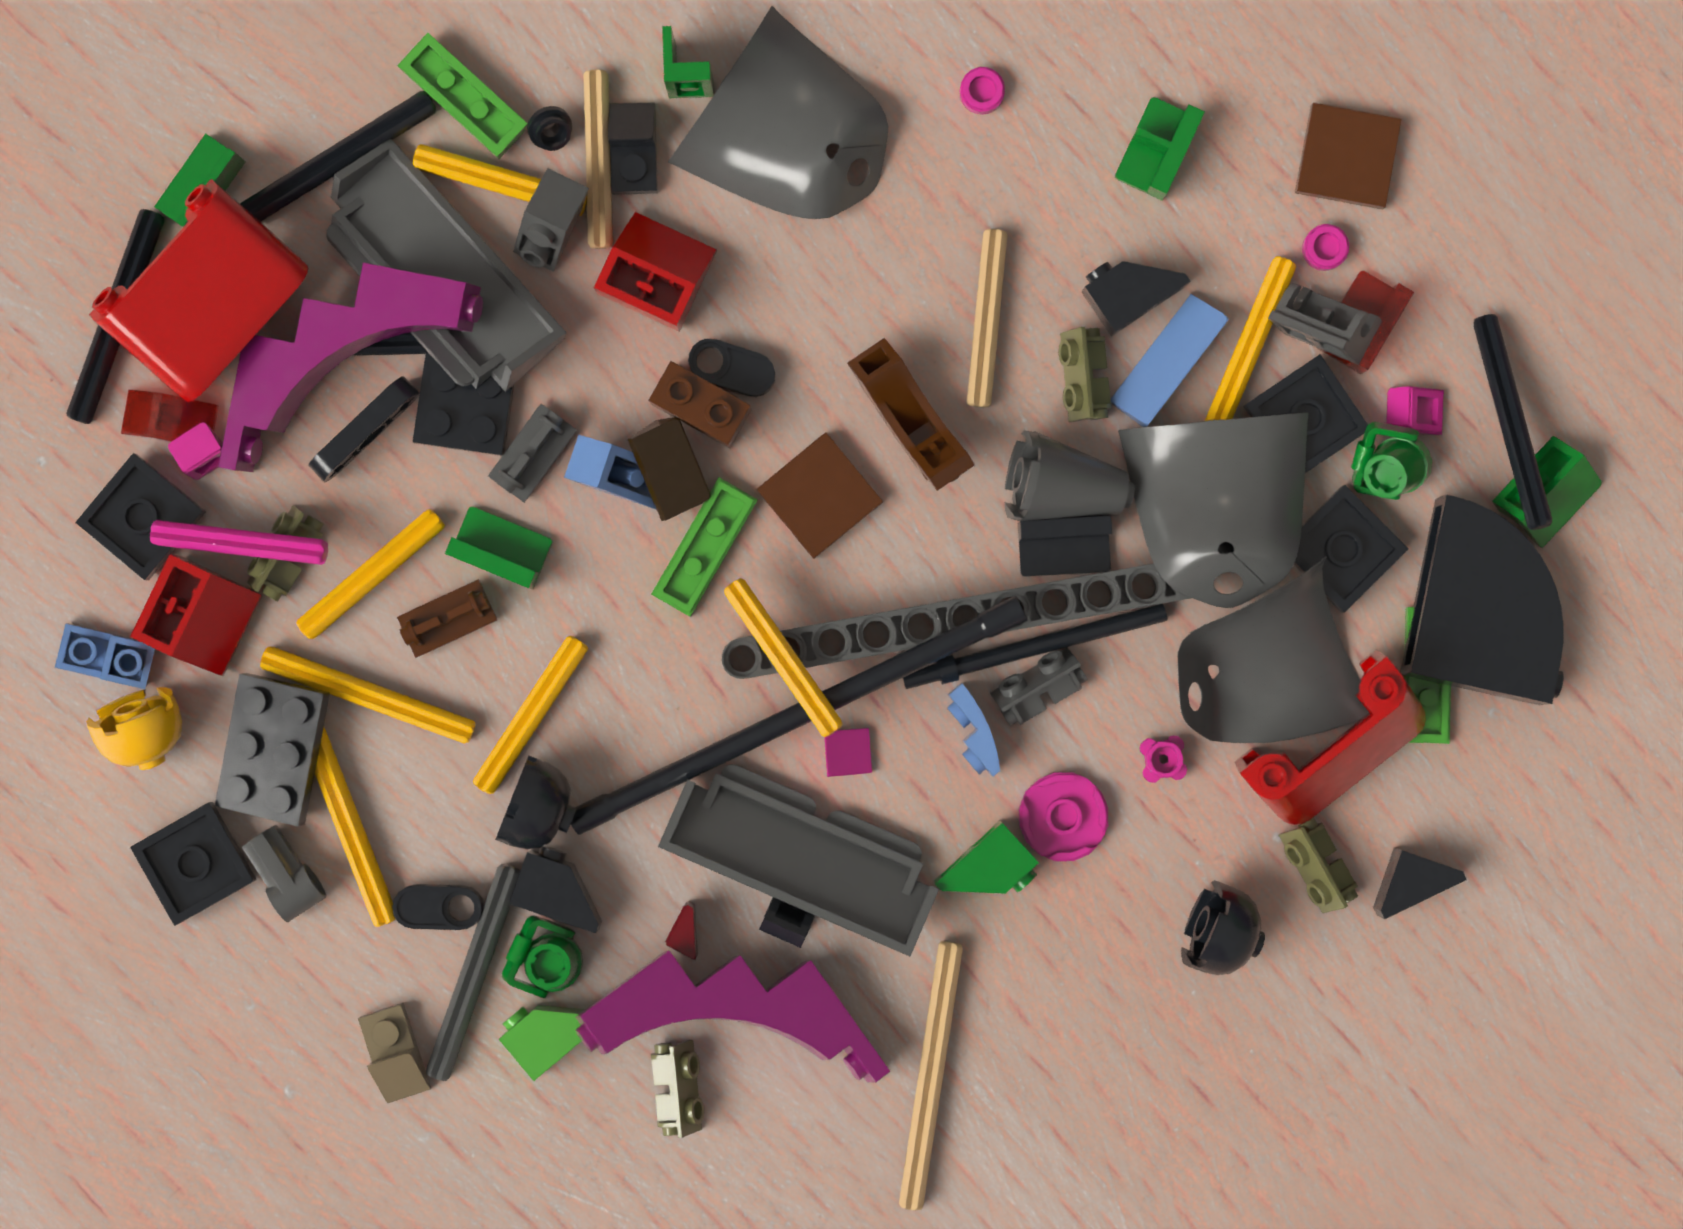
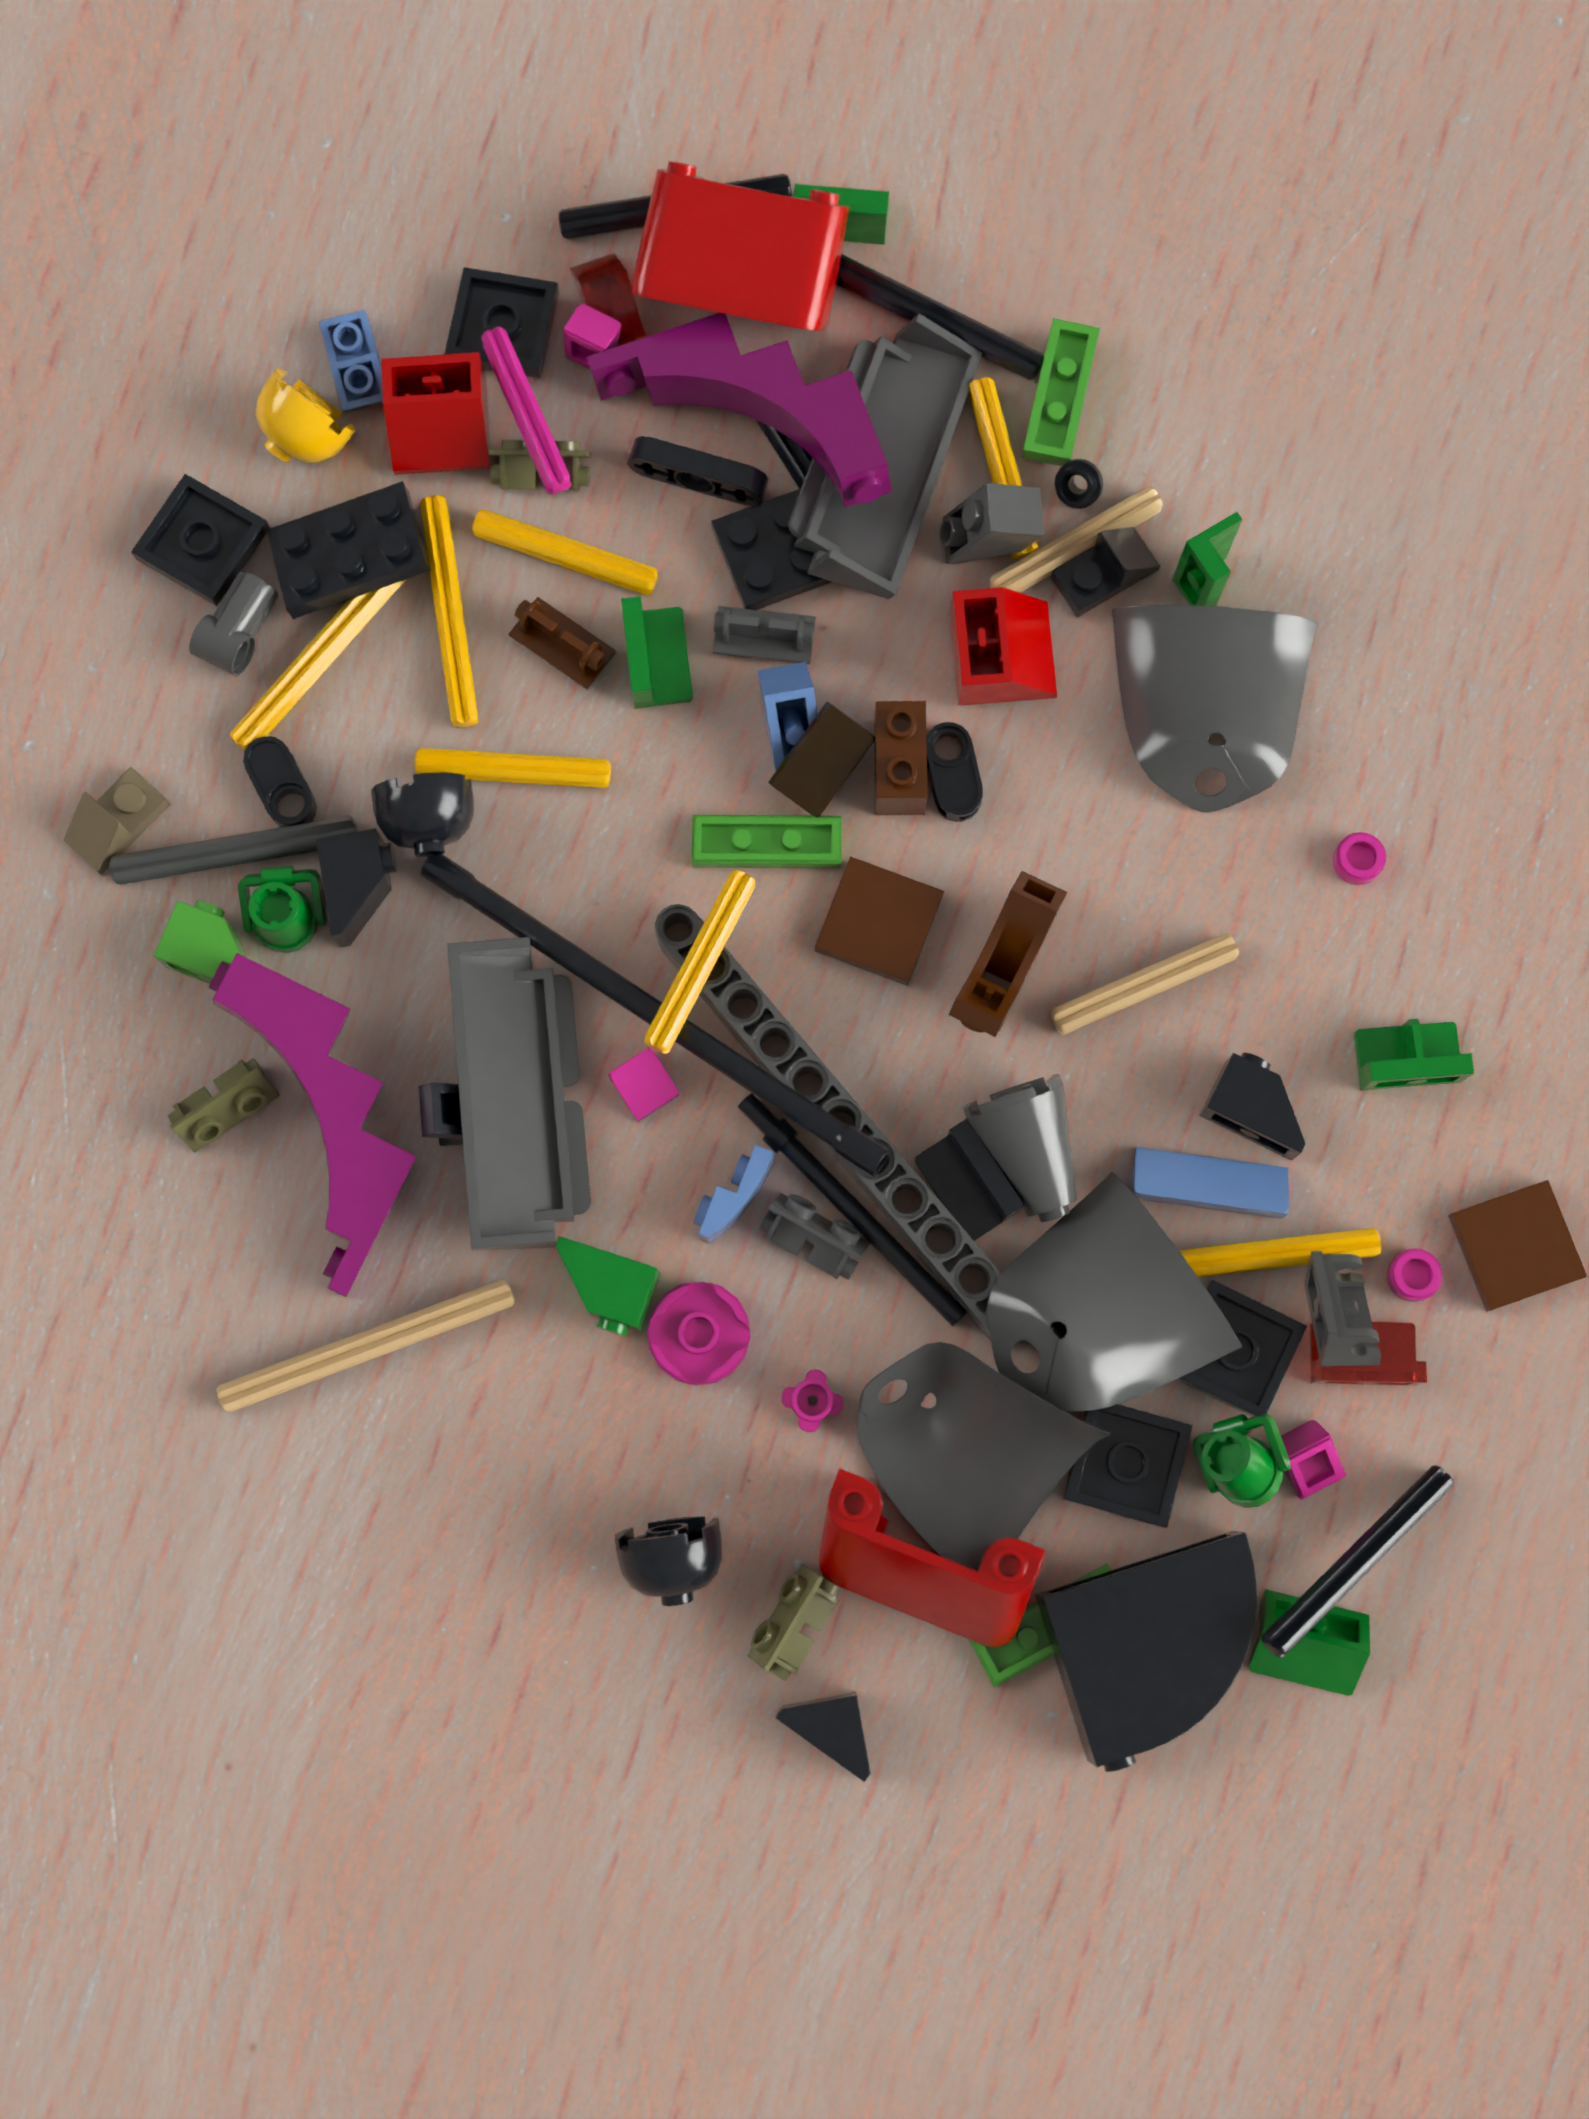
camera: 65 degrees right, 10 degrees down
(684, 932) = (379, 1024): dark red slope -> none
(1080, 354) = (1162, 1093): olive hinge -> none

